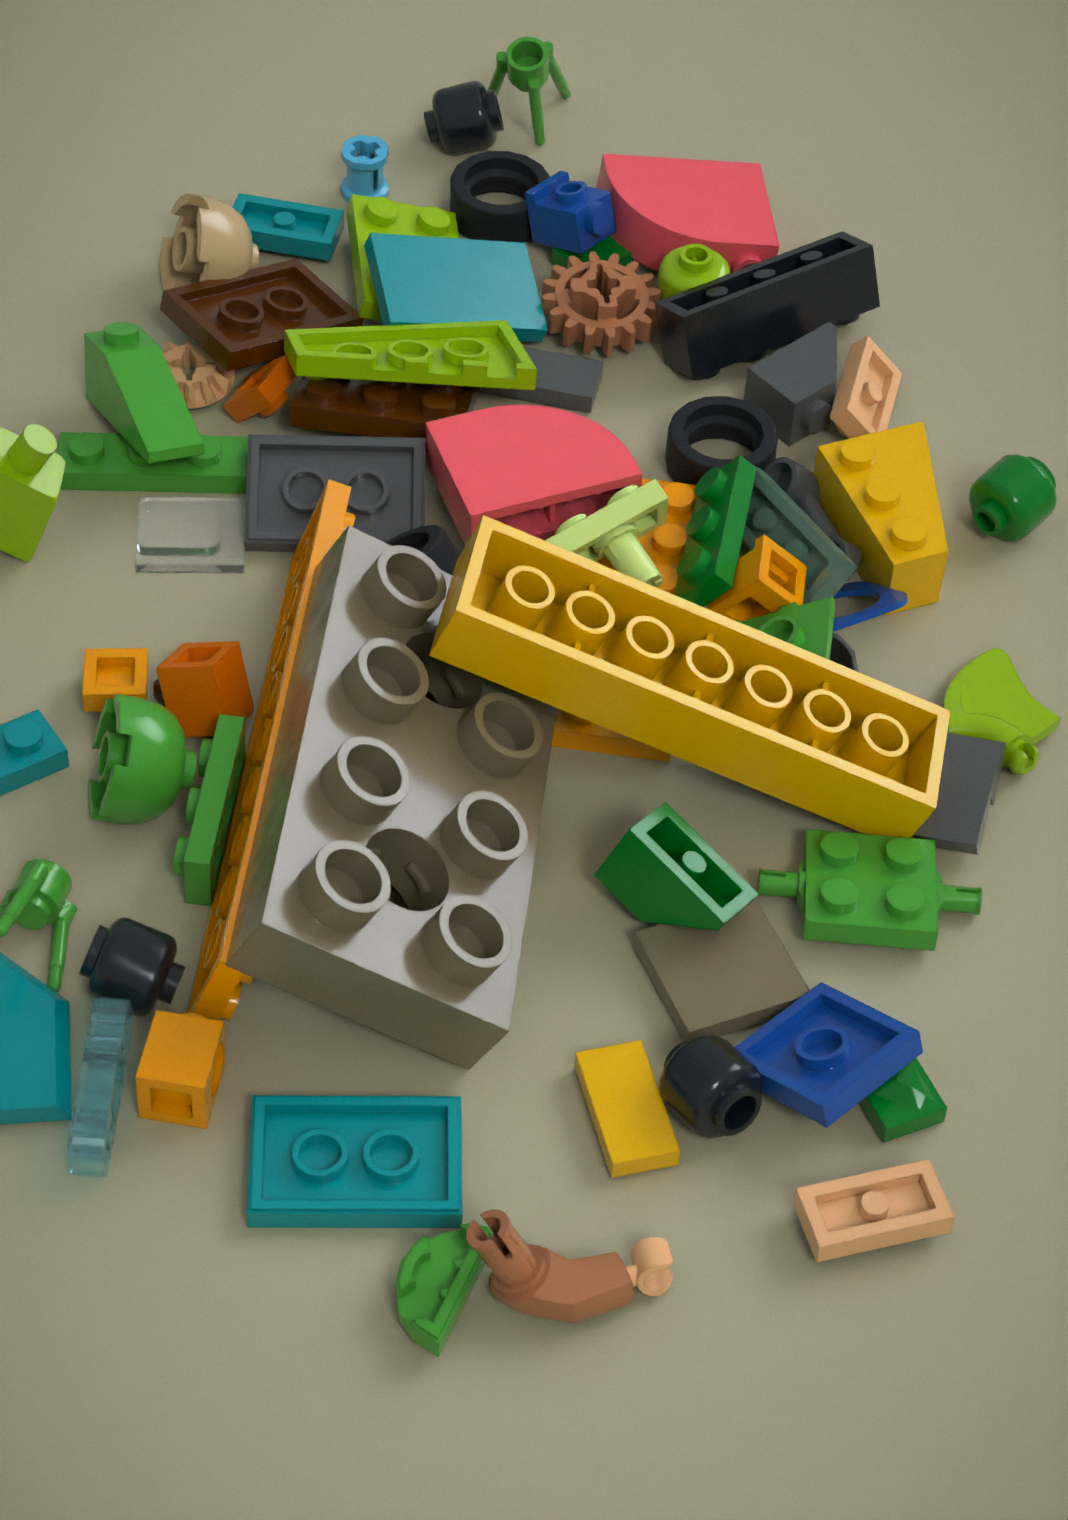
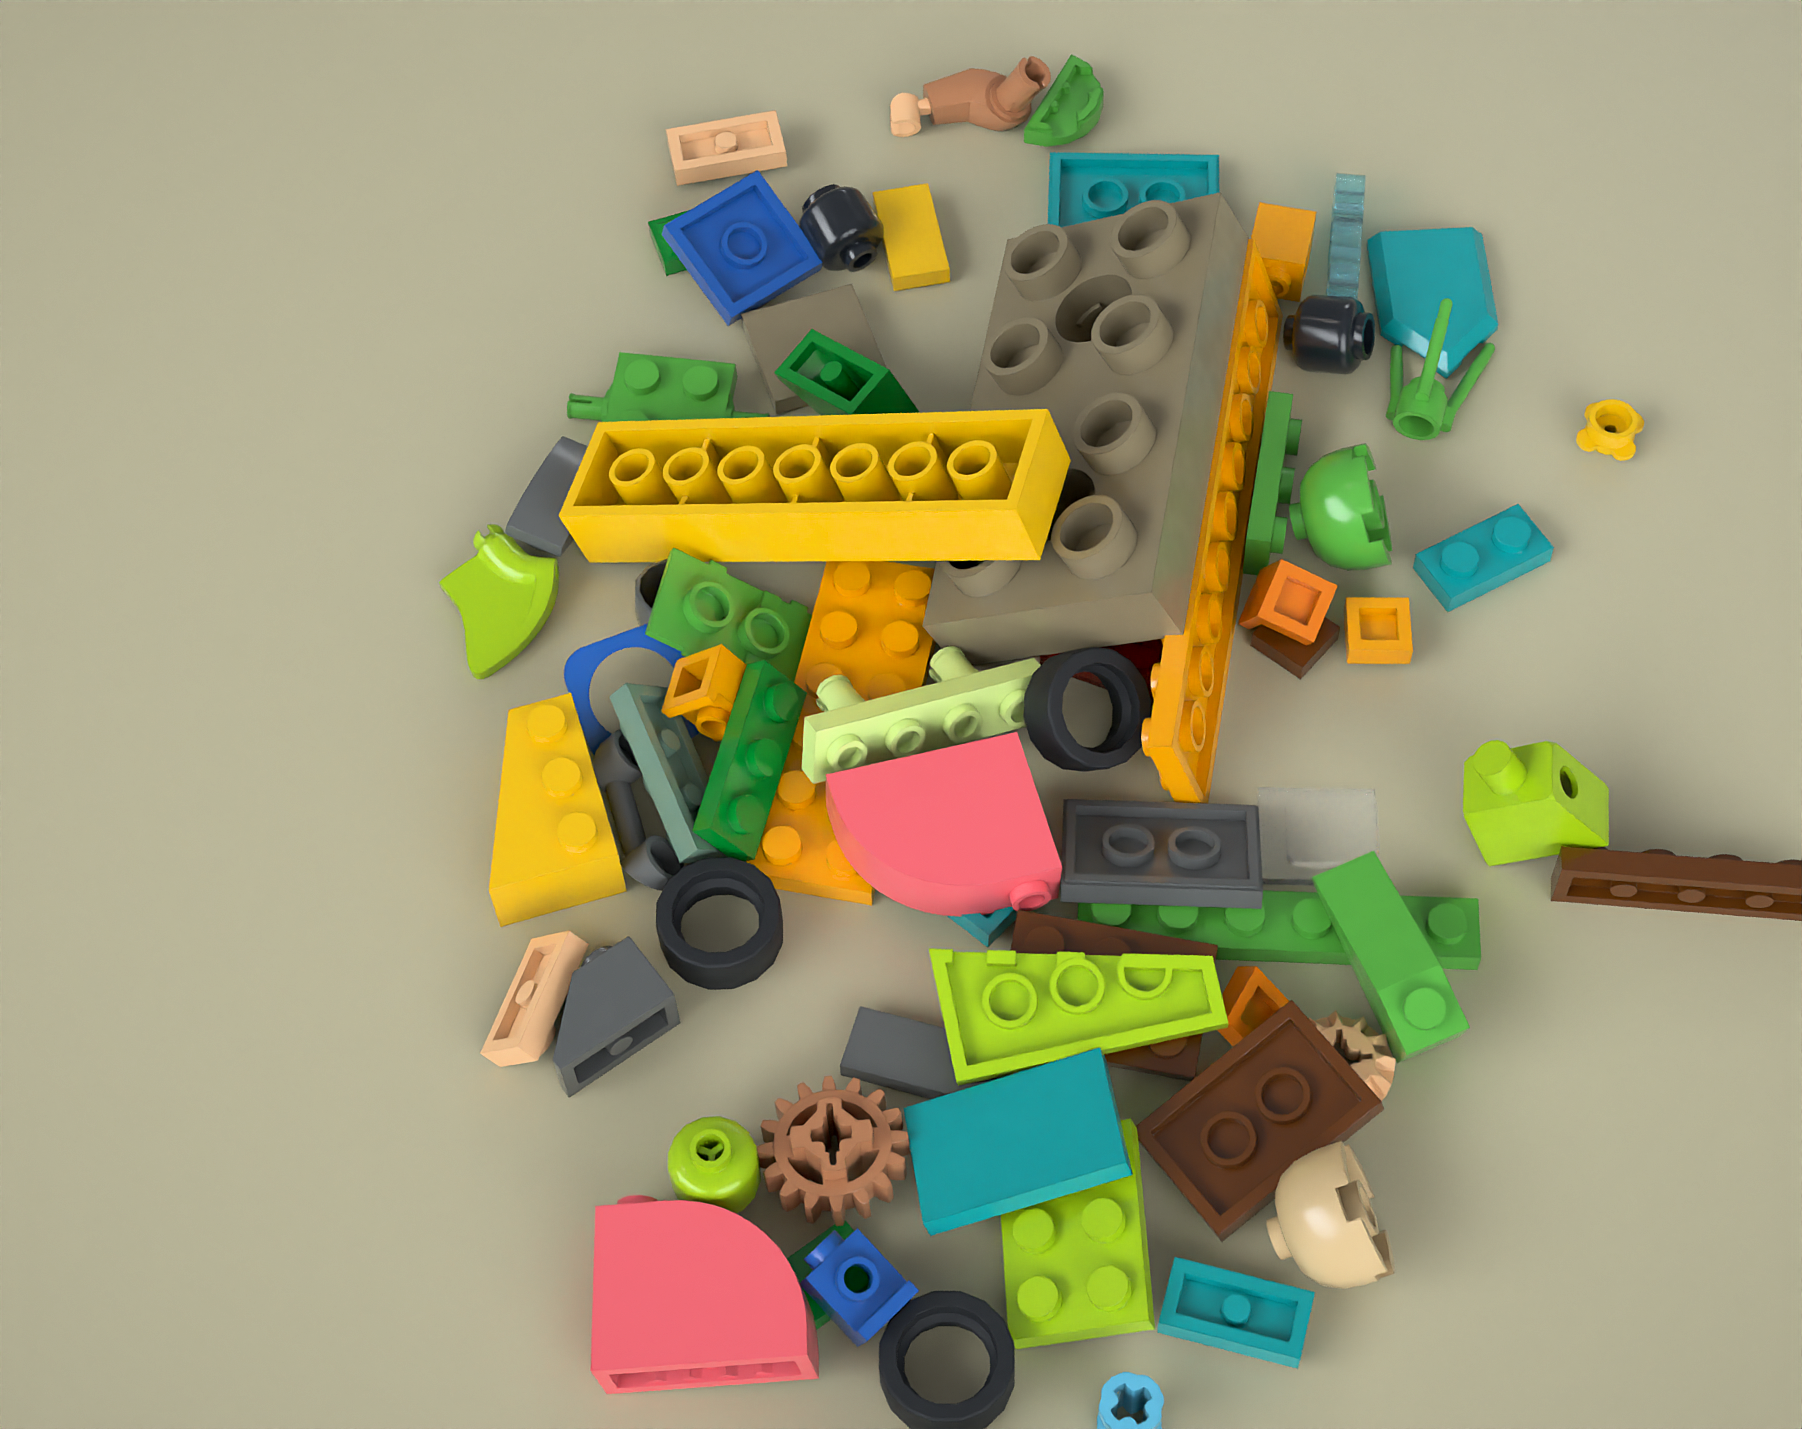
camera: 170 degrees left, 10 degrees up
(767, 305) = (625, 1119): black brick -> none
(1013, 497) = (408, 834): green head -> none

